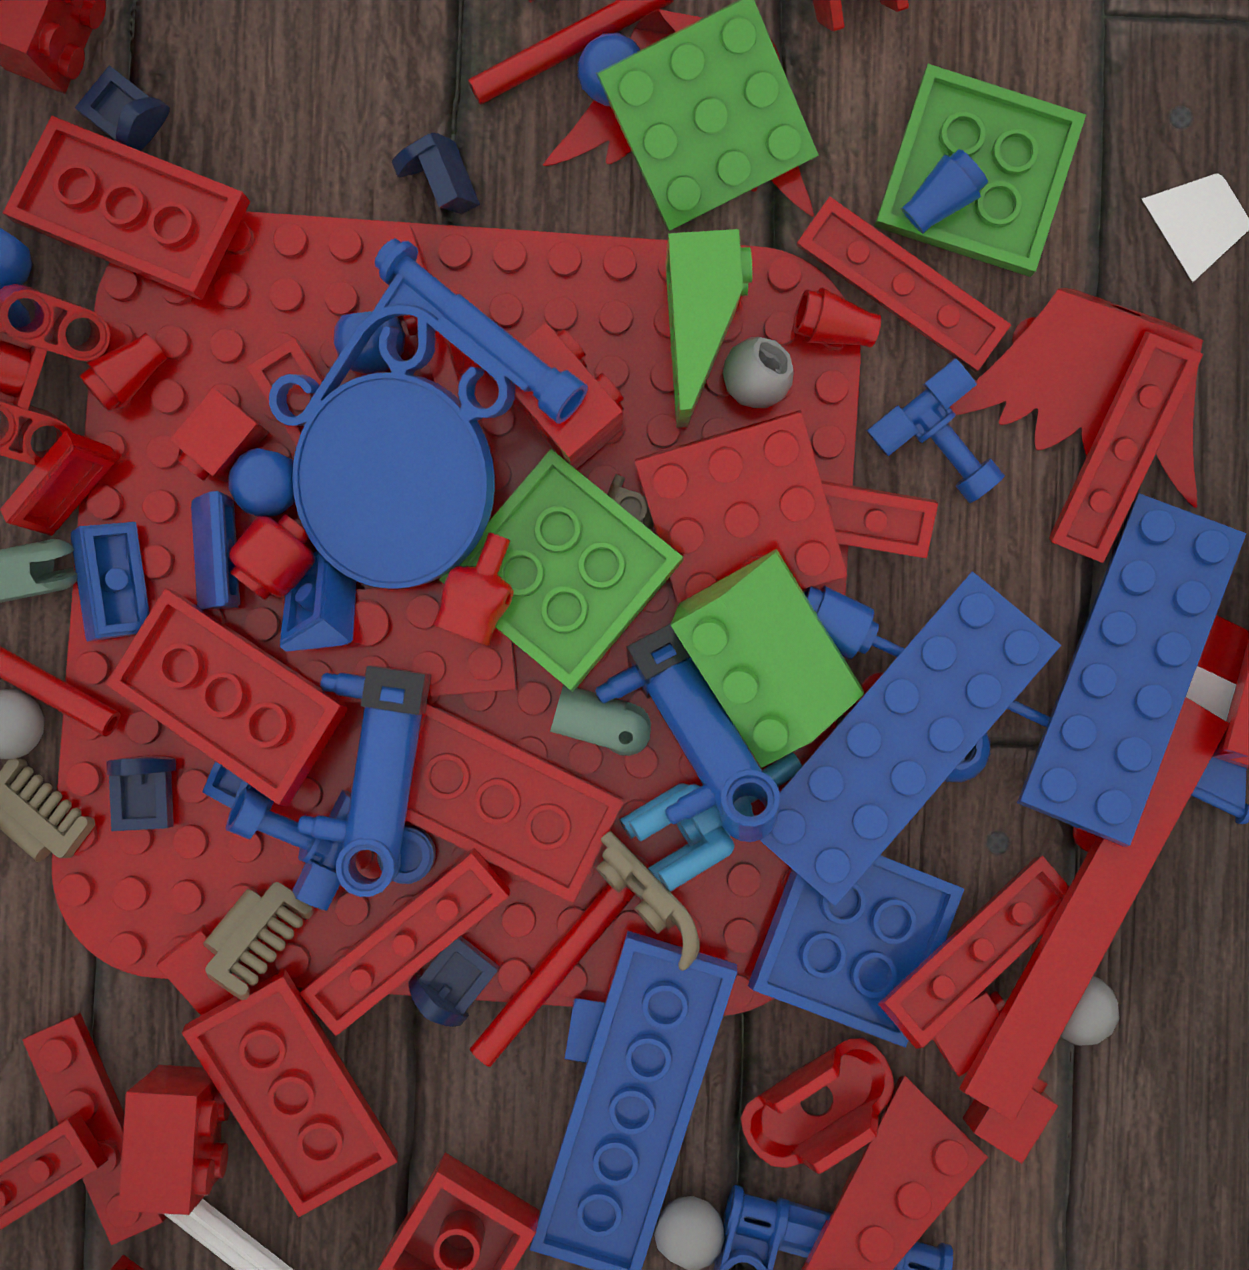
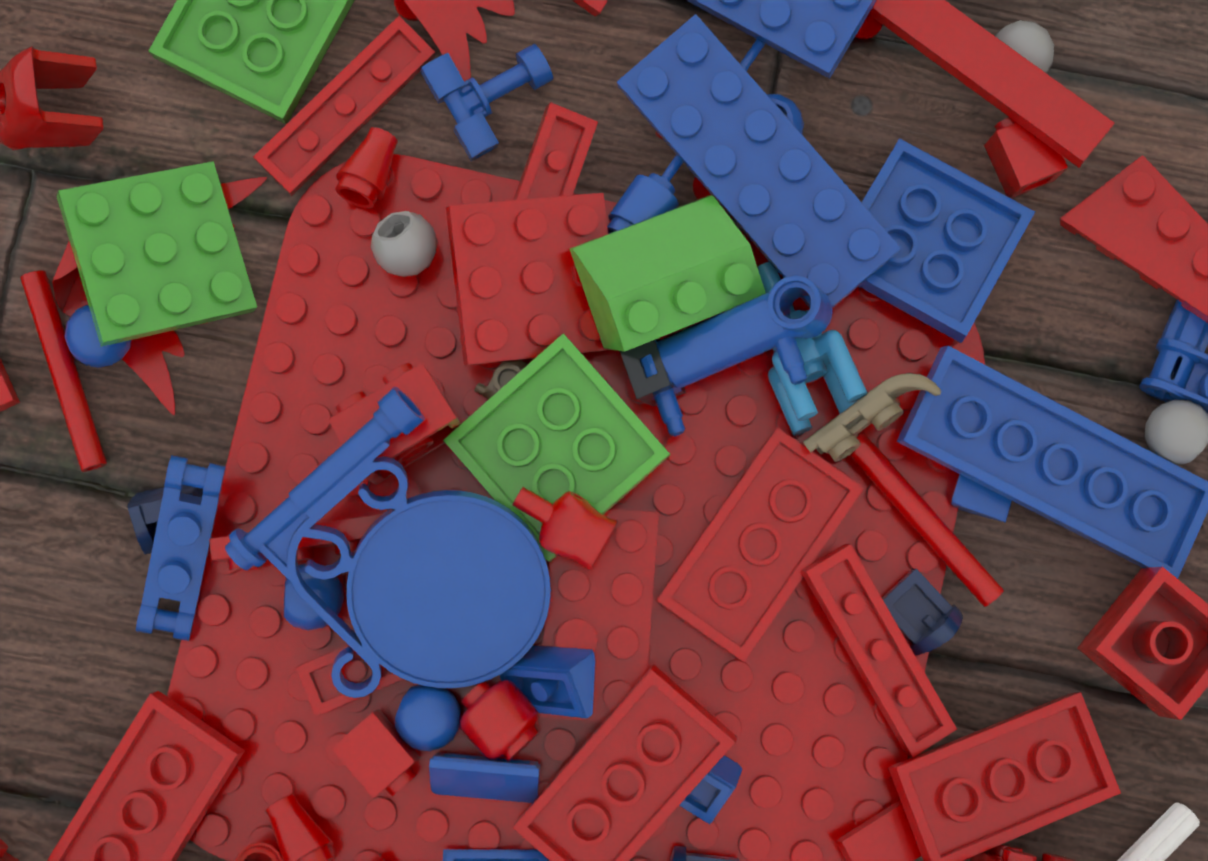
camera: 85 degrees left, 5 degrees down
(123, 110) = (46, 804): dark blue tile -> none
(241, 931) = (847, 803): dark tan piece -> none
(318, 877) = (775, 717): blue bar -> none
(381, 775) = (718, 643): blue piece -> none
(400, 196) = (180, 547): none -> blue plate
(417, 855) = (796, 638): blue tile -> none
(612, 724) = (706, 424): sand green piece -> none
(703, 291) = (327, 281): bright green slope -> none
(790, 1136) = (1068, 260): red piece -> none
(946, 190) = (268, 51): blue cone -> none
(976, 953) = (959, 135): red plate -> none
(1018, 1136) = (1123, 136): red brick -> none

